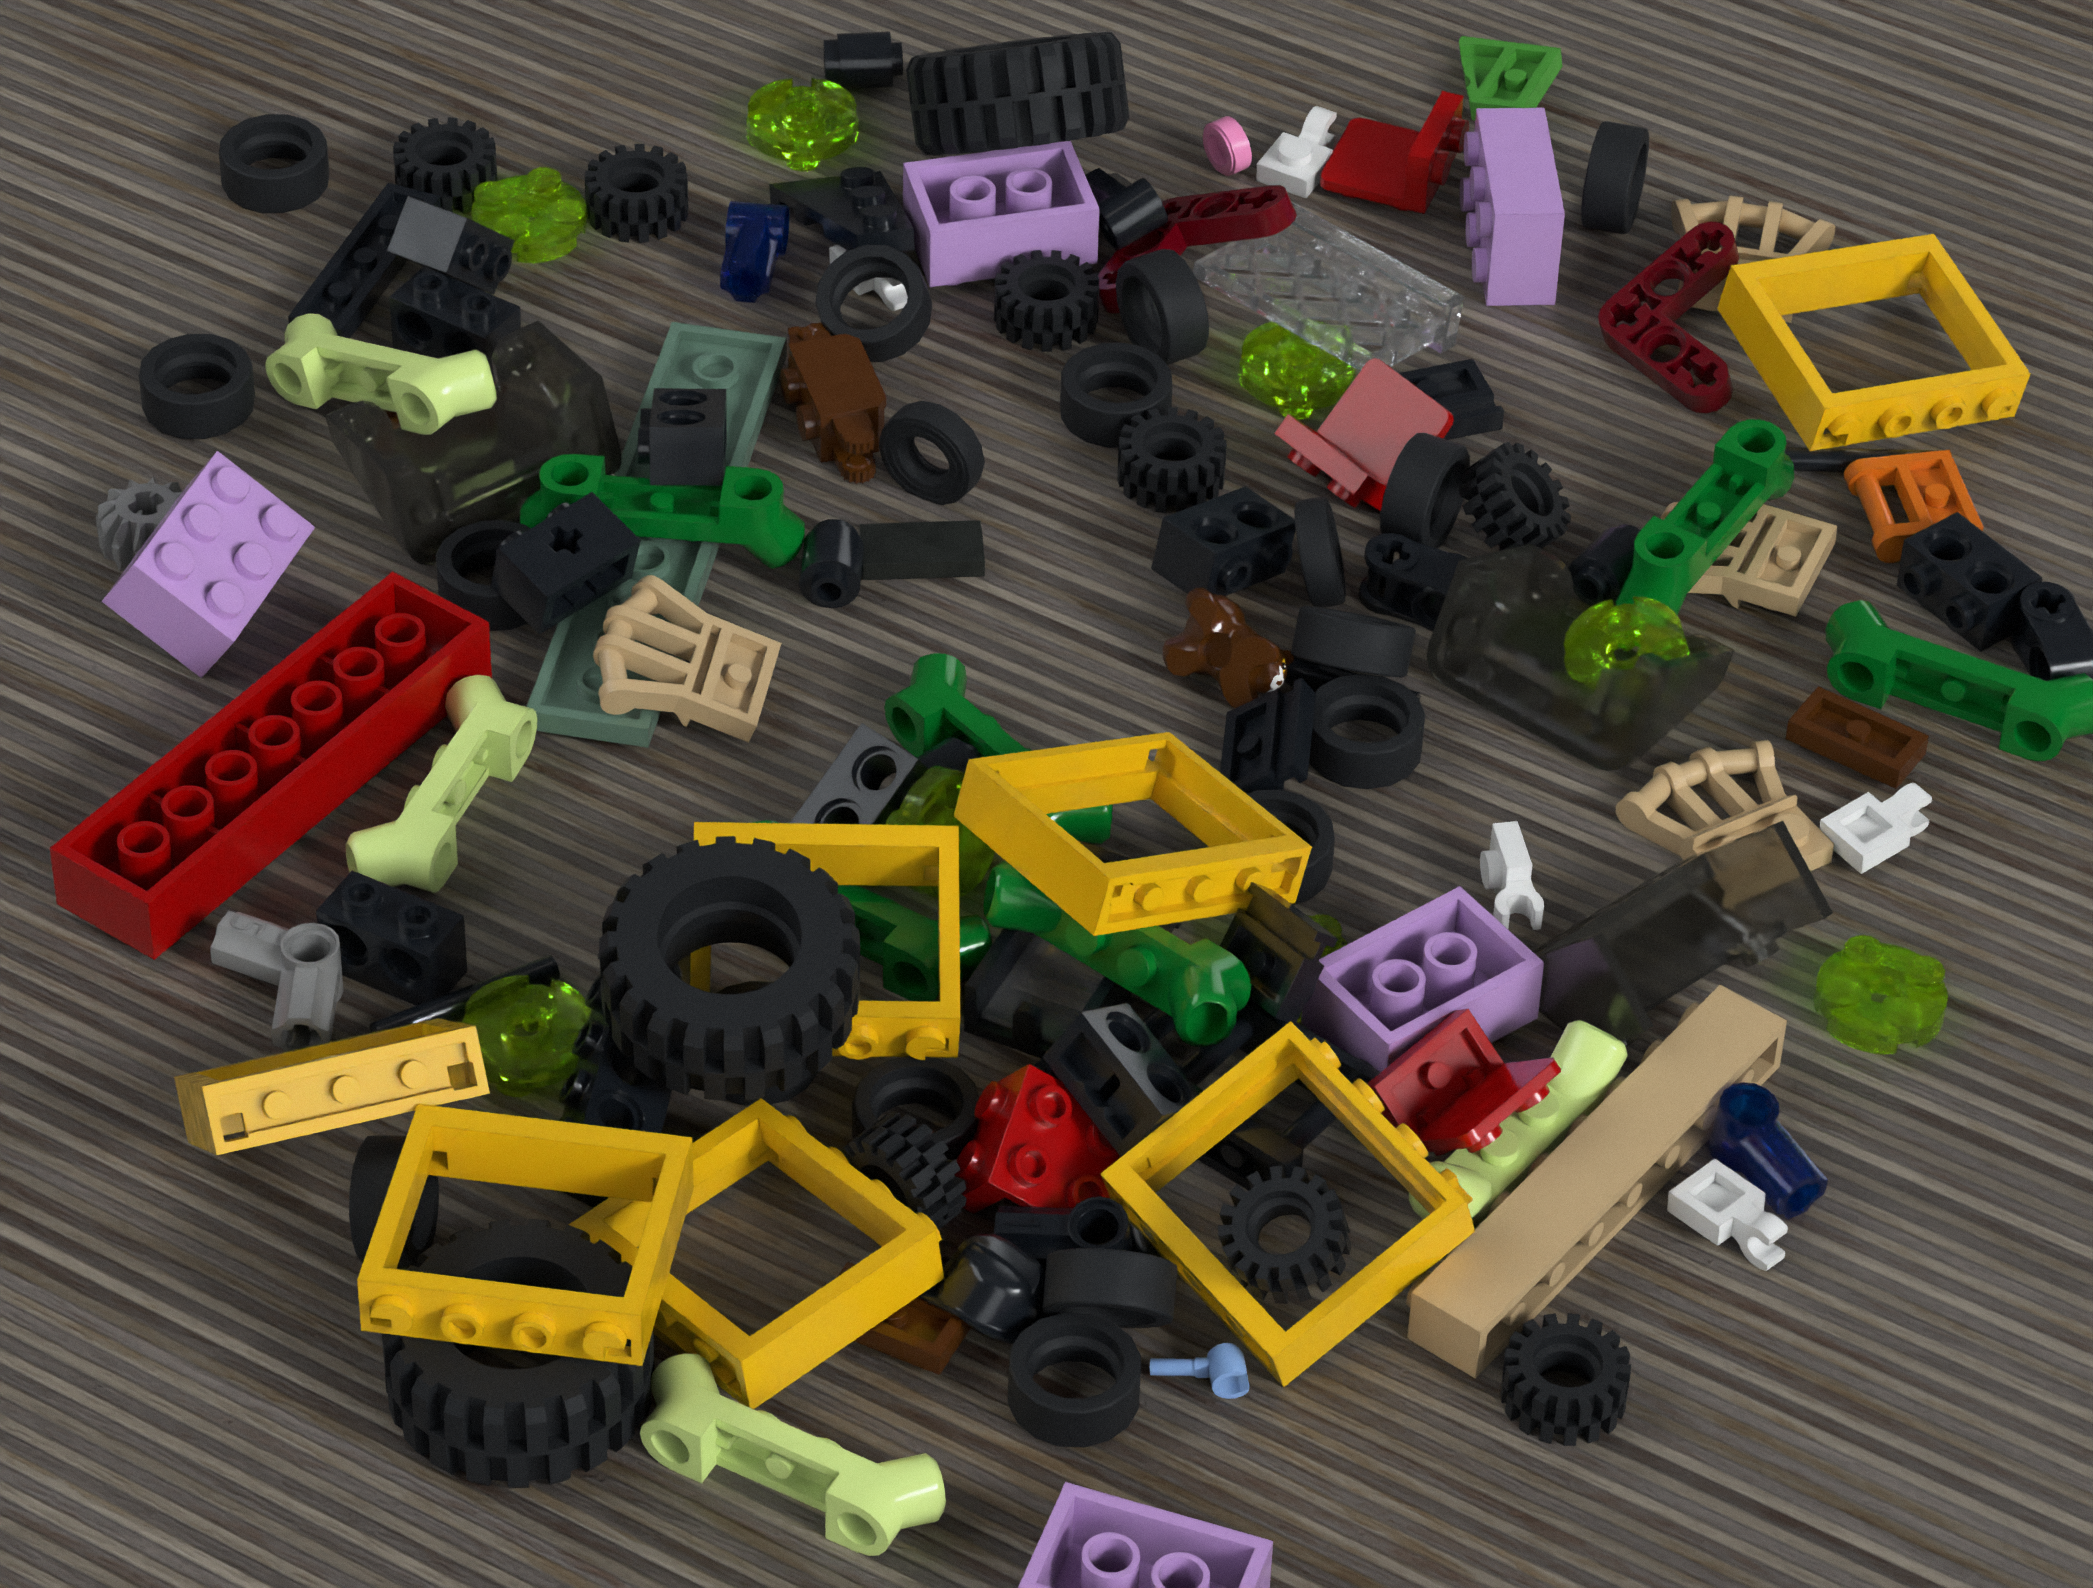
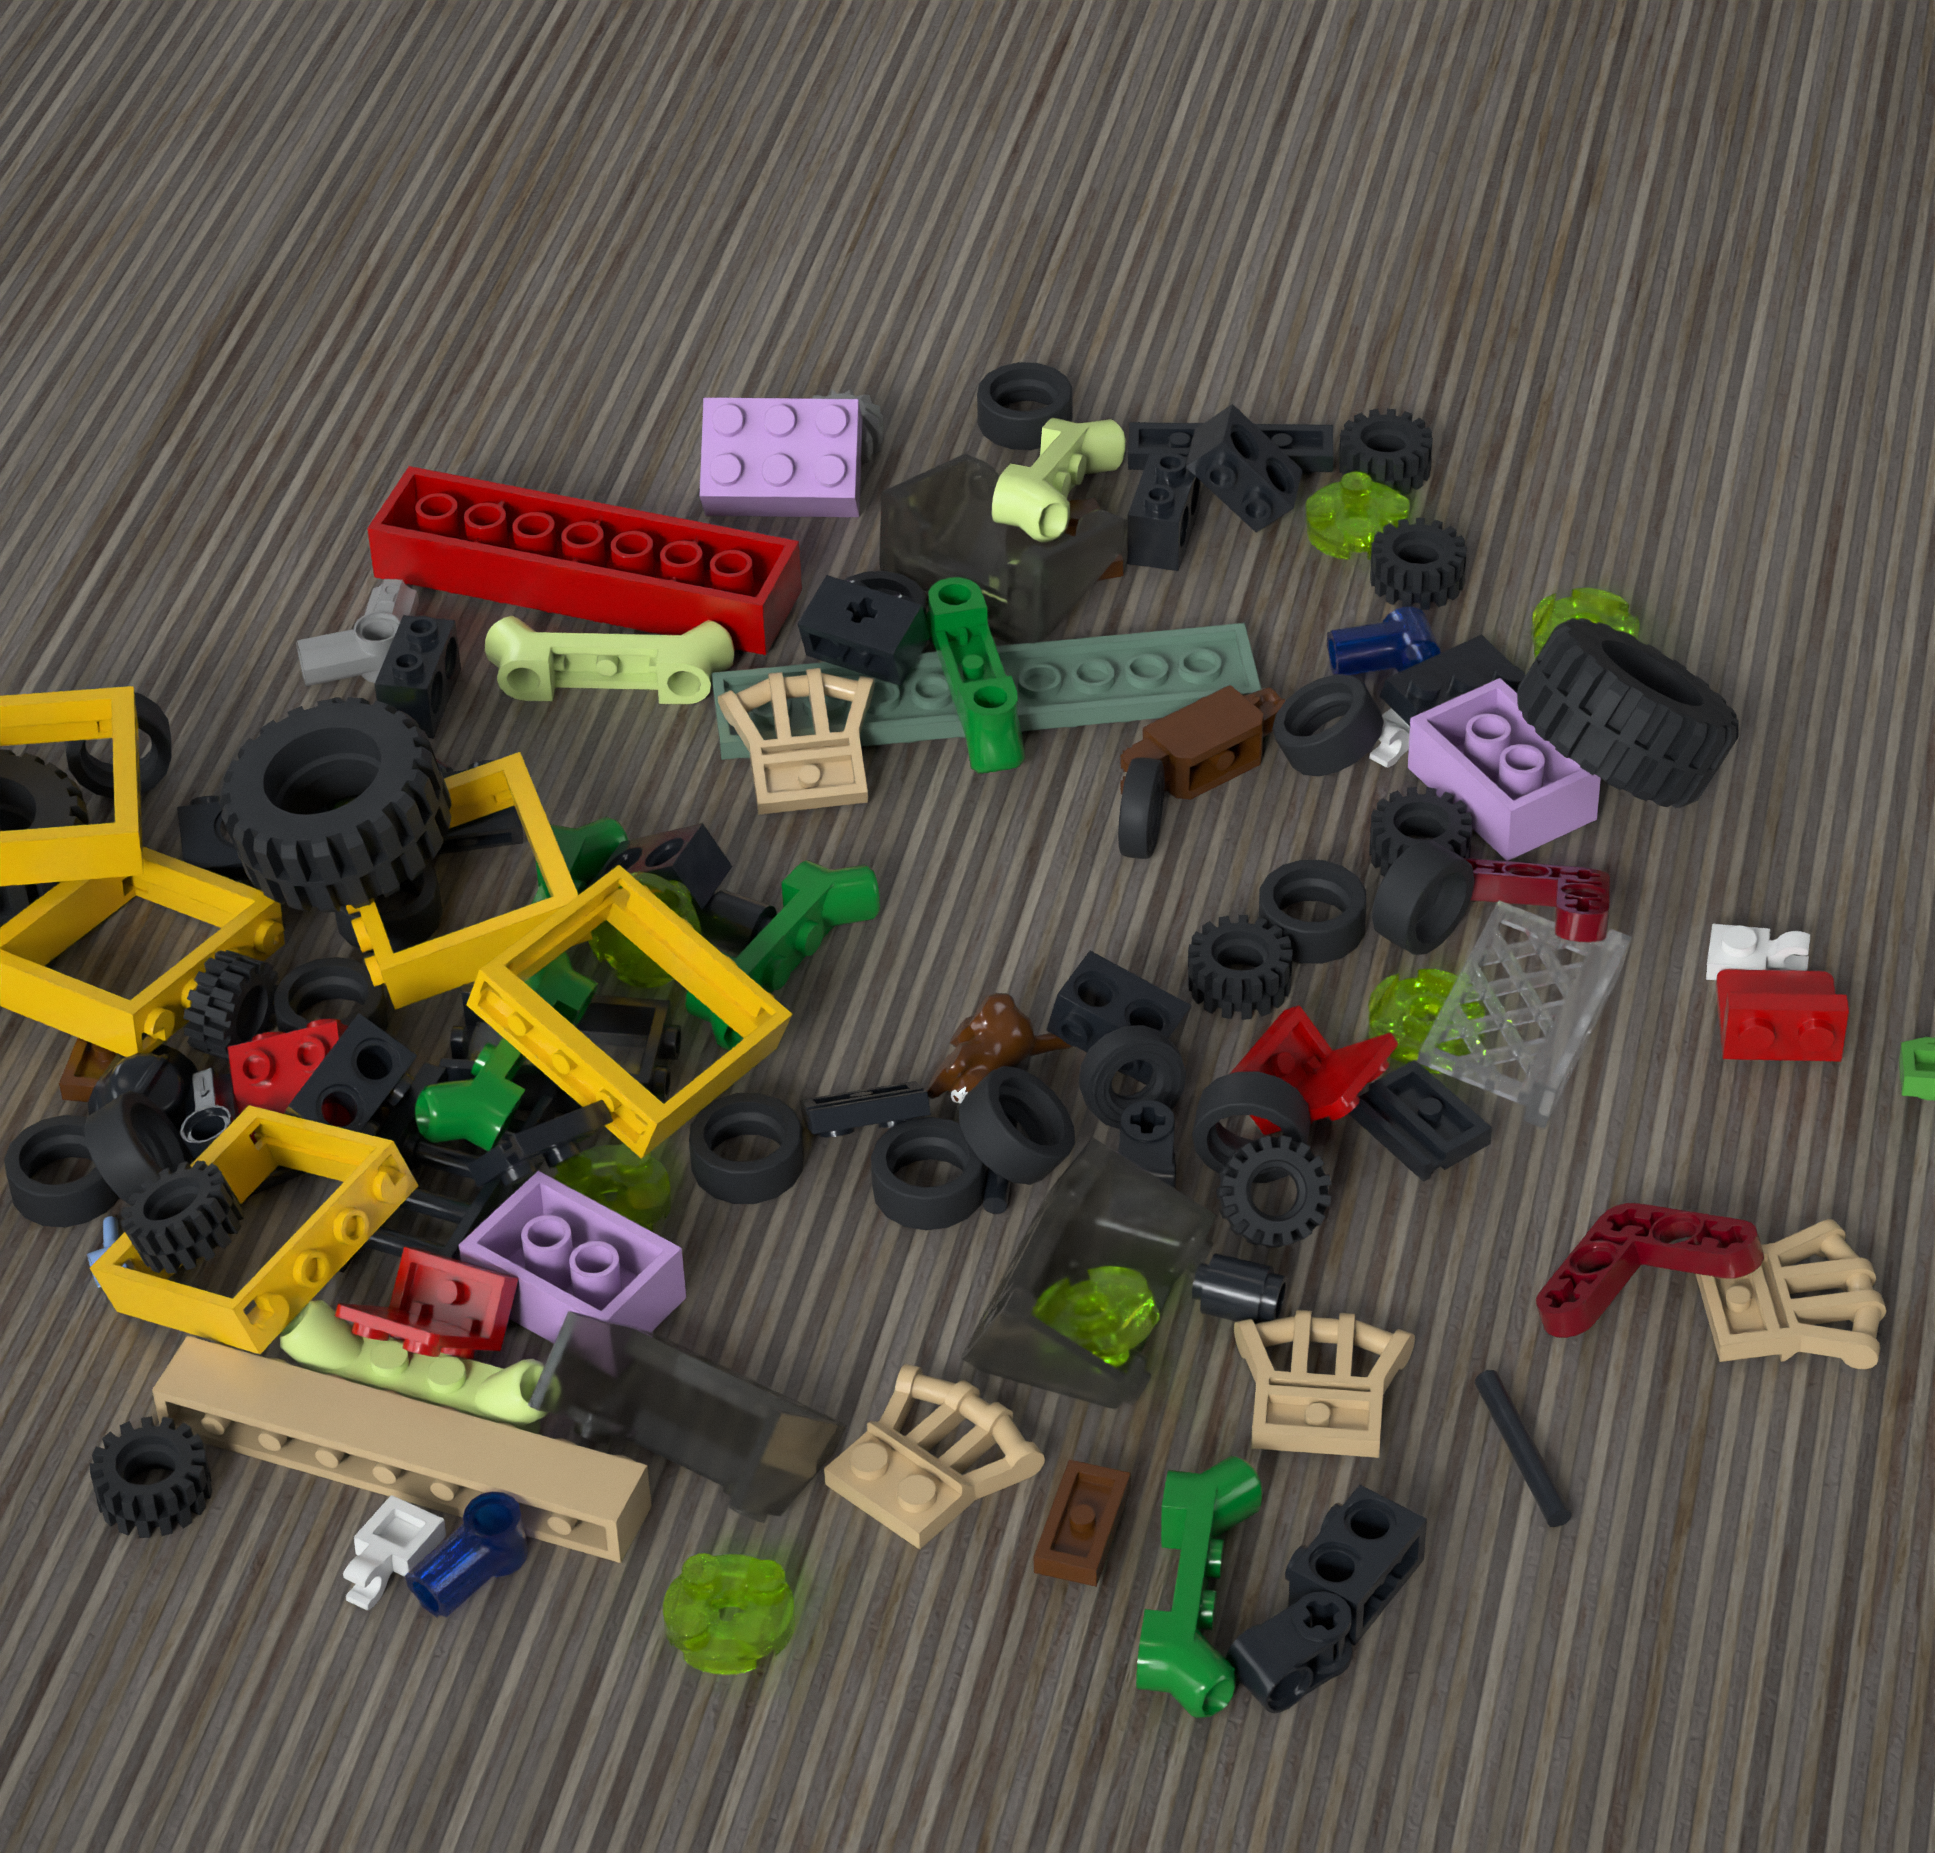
camera: 75 degrees right, 0 degrees up
(274, 189) = (1330, 387): black tyre -> none
(331, 1085) = (140, 634): yellow window -> none
(684, 436) = (1048, 648): black brick -> none
(831, 564) = (984, 795): black brick -> none
(862, 60) = (1690, 639): black brick -> none
(922, 550) = (1045, 849): pearl dark grey tile -> none
(1125, 208) = (1560, 840): black piece -> none
(1227, 146) = (1719, 895): bright pink tile -> none
(1509, 872) = (771, 1310): white plate -> none
(1513, 206) = (1721, 1095): lavender brick -> none
(1615, 177) = (1820, 1130): black tyre -> none
(1677, 551) = (1381, 1337): green plate -> none
(1765, 290) = (1738, 1341): yellow window -> none
(1873, 831) = (953, 1555): white plate -> none
(1927, 489) = (1479, 1517): orange plate -> none

